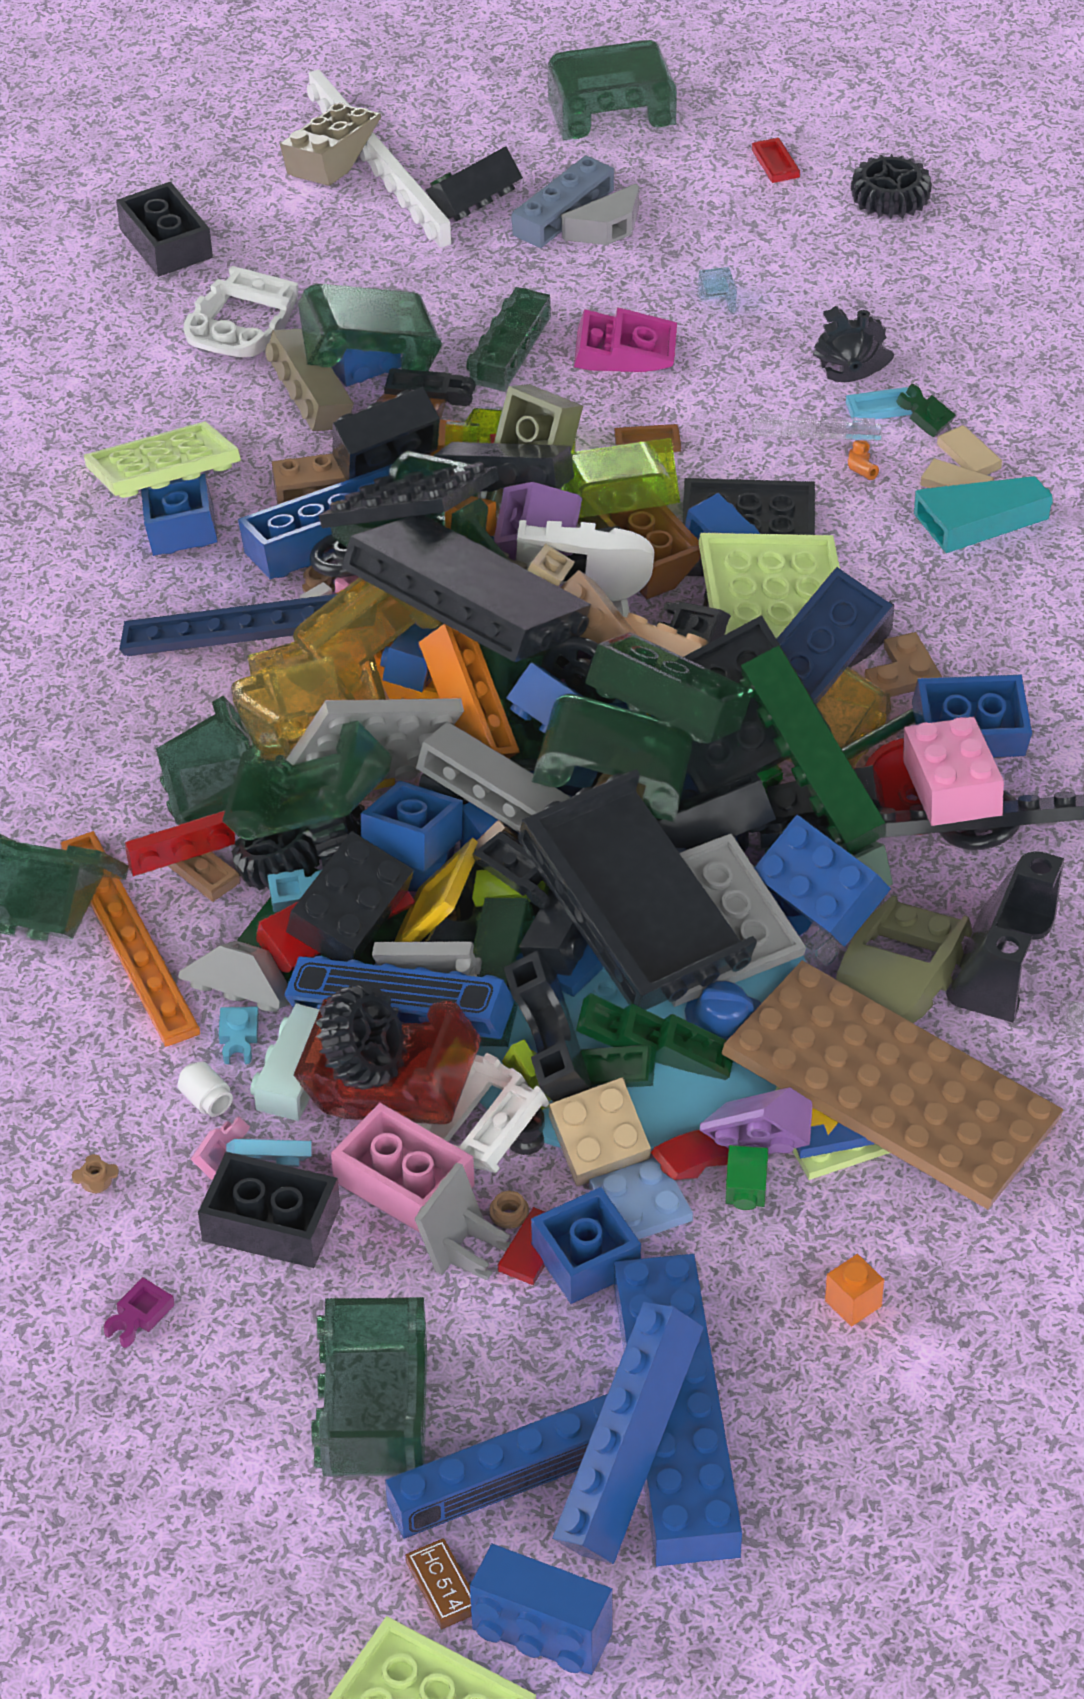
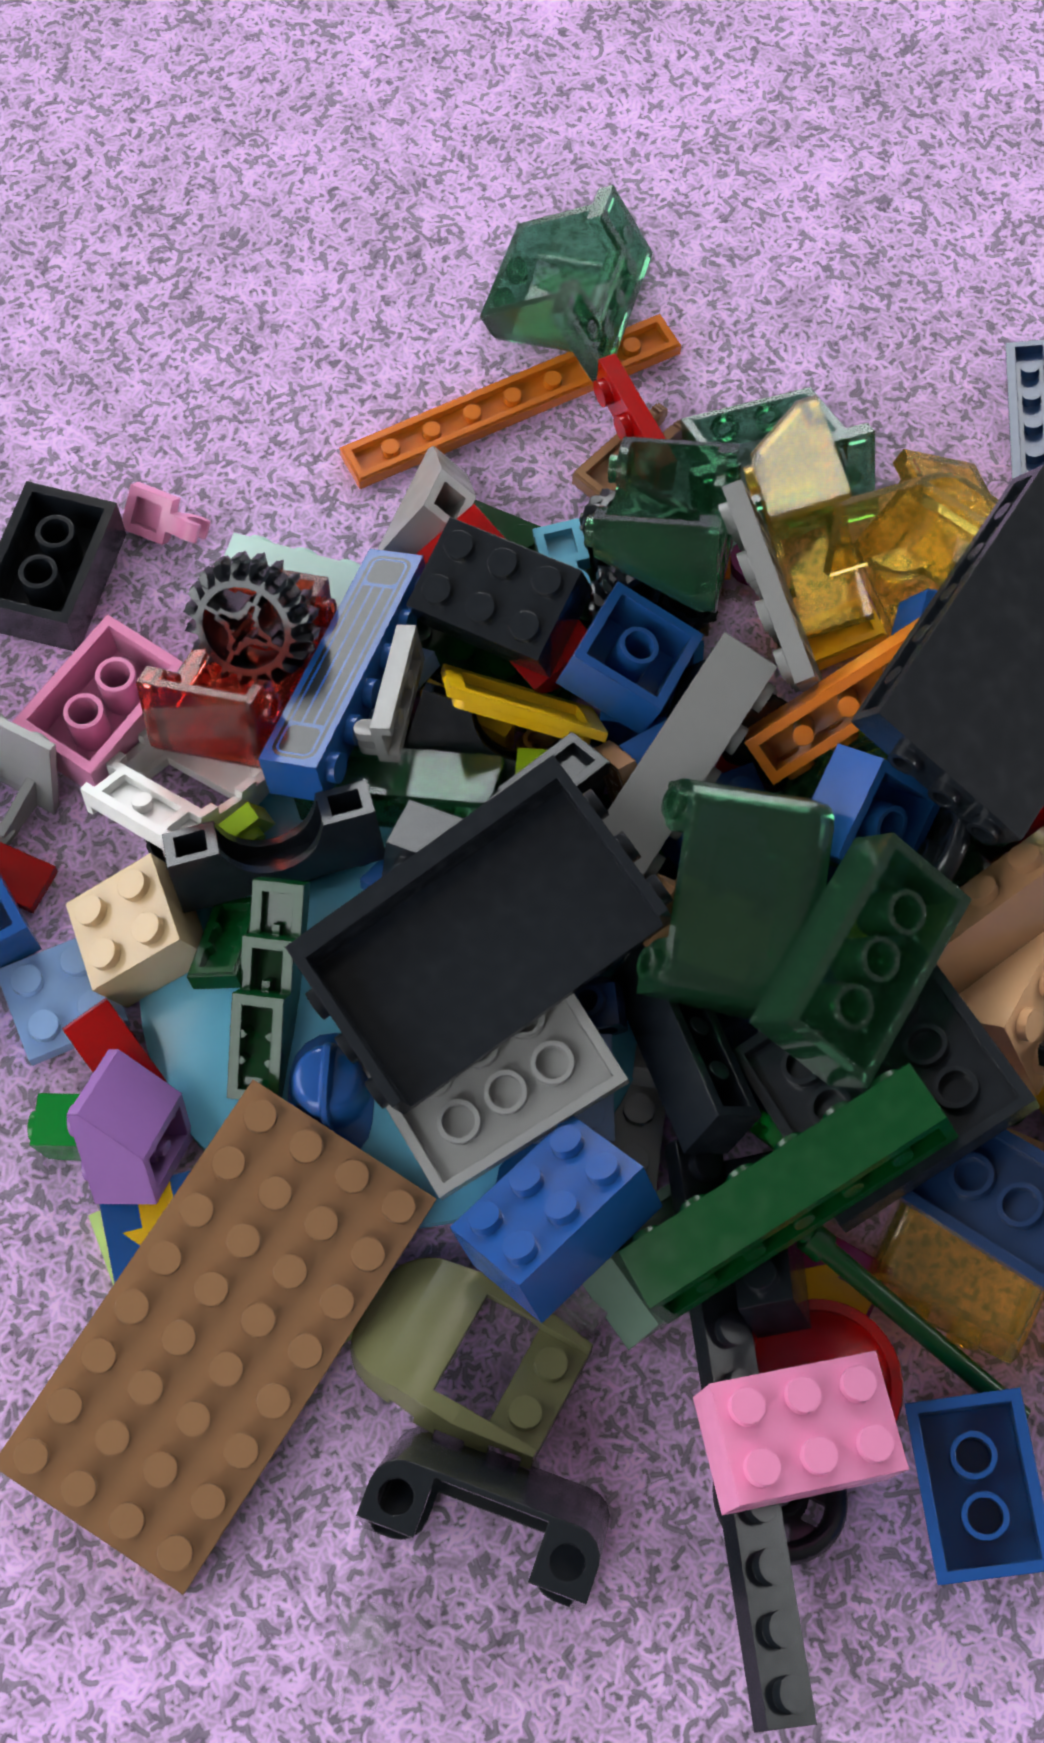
camera: 85 degrees right, 20 degrees up
(95, 1182) = (138, 407): medium nougat plate -> none
(205, 1089) = (255, 492): white brick -> none
(236, 1030) = (360, 525): medium azure plate -> none
(282, 1151) = (144, 559): medium azure plate -> none
(509, 1201) = (48, 827): medium nougat plate -> none

